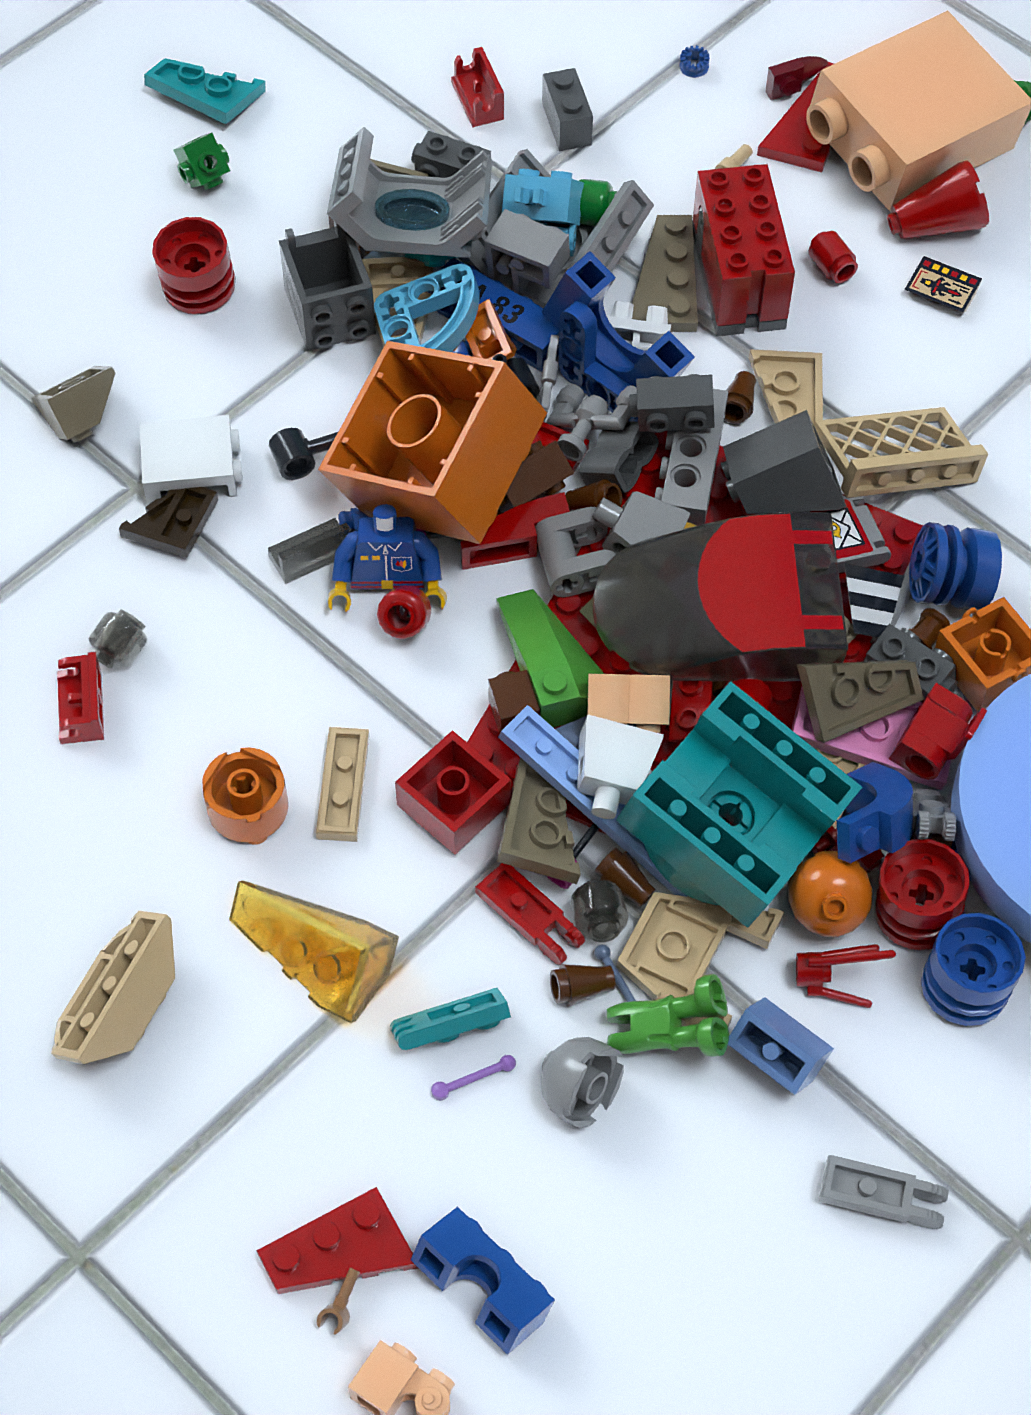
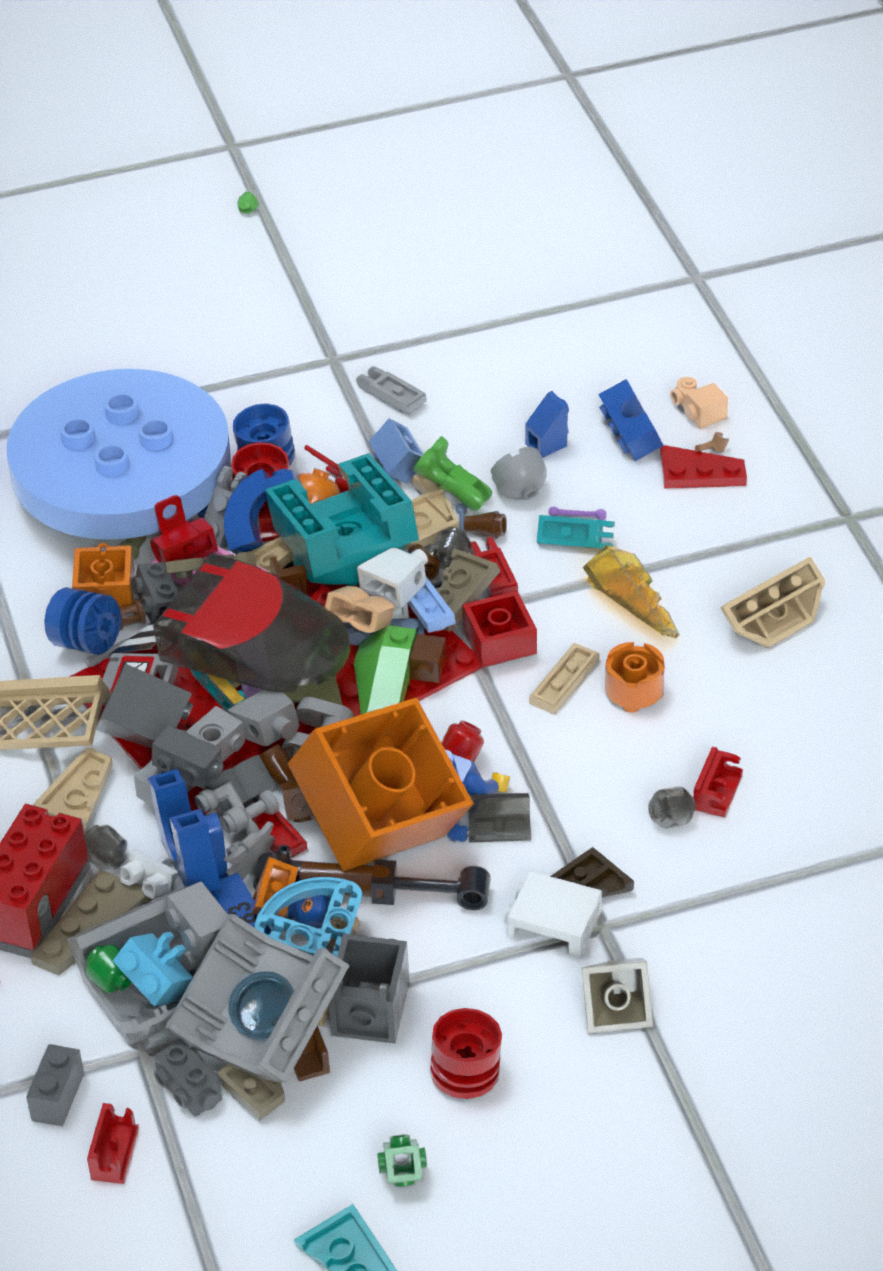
camera: 150 degrees left, 15 degrees down
(592, 1196) = (548, 425): none -> blue slope
(710, 340) = (105, 847): none -> clear smoke head
(740, 398) = (117, 803): reddish brown cone -> none

